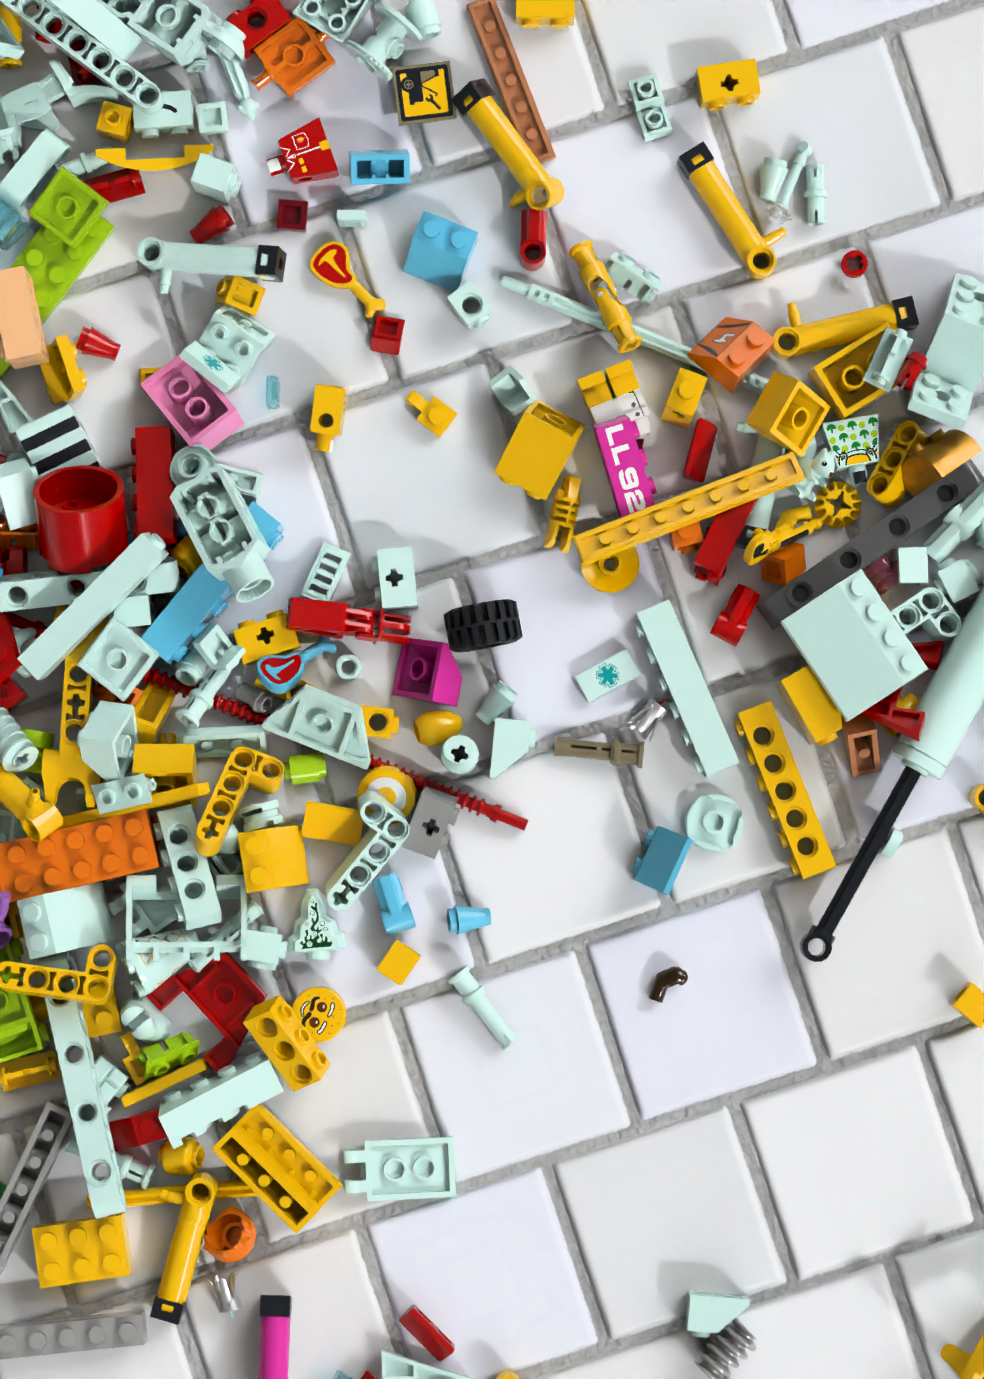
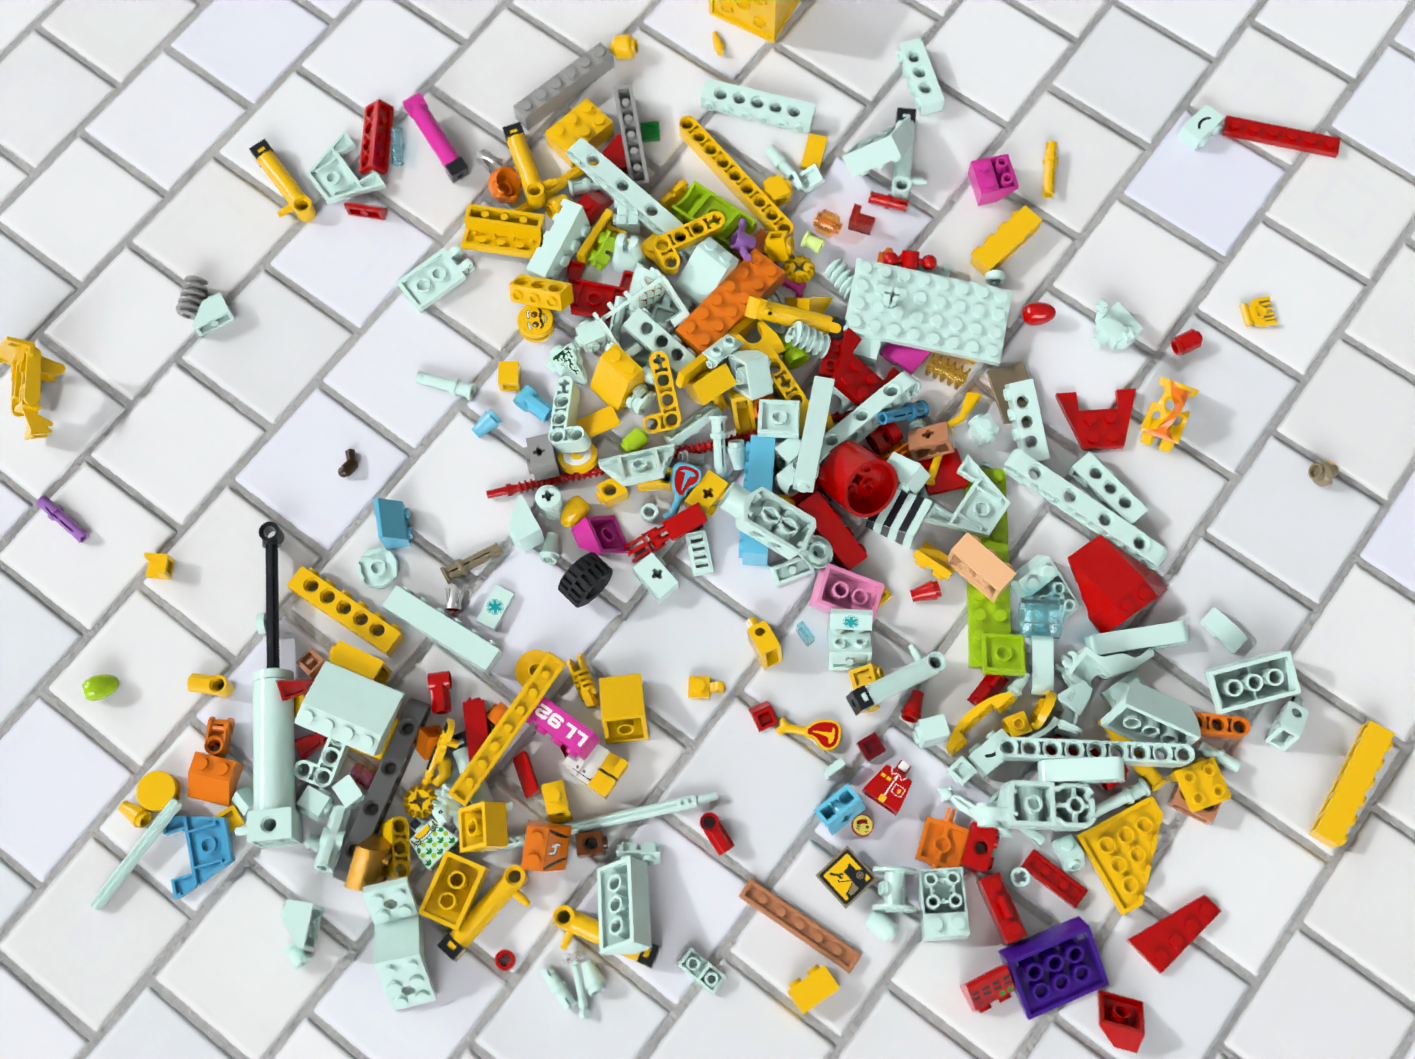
camera: 150 degrees right, 15 degrees down
(63, 1179) = (615, 153): none -> red slope
(73, 116) = (1042, 710): none -> yellow tile
(217, 648) = (728, 466): light aqua bracket -> none
(365, 137) = (862, 825): none -> tile
(440, 251) = (766, 786): medium azure slope -> none
(466, 293) = (730, 773): light aqua brick -> none
(478, 102) = (735, 865): yellow piece -> none
(512, 390) = (663, 731): light aqua panel -> none
(612, 311) = (639, 821): yellow piece -> none
(684, 333) = (583, 838): none -> reddish brown brick
(689, 224) = (624, 907): none -> light aqua slope
(741, 76) = (674, 1015): yellow brick -> none
(888, 359) = (440, 904): light aqua hinge -> none
(914, 365) = (421, 908): red pin -> none

